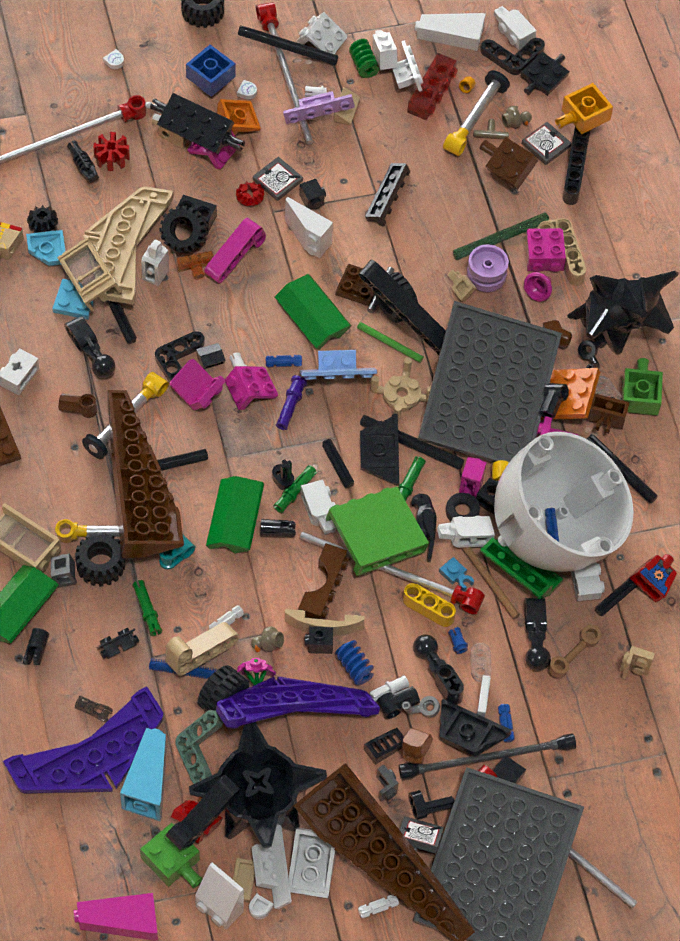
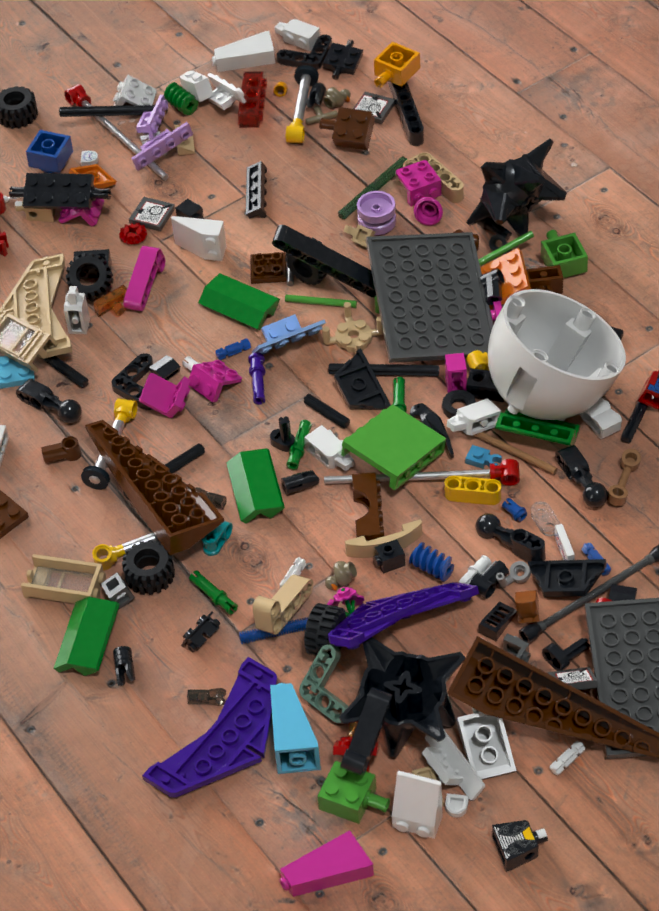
camera: 15 degrees left, 10 degrees down
(189, 511) = (217, 500): none -> clear smoke bar
(326, 70) = (151, 120): none -> lavender bracket
(496, 107) = (316, 95): none -> black hinge
(588, 359) = (505, 248): none -> bright green bar

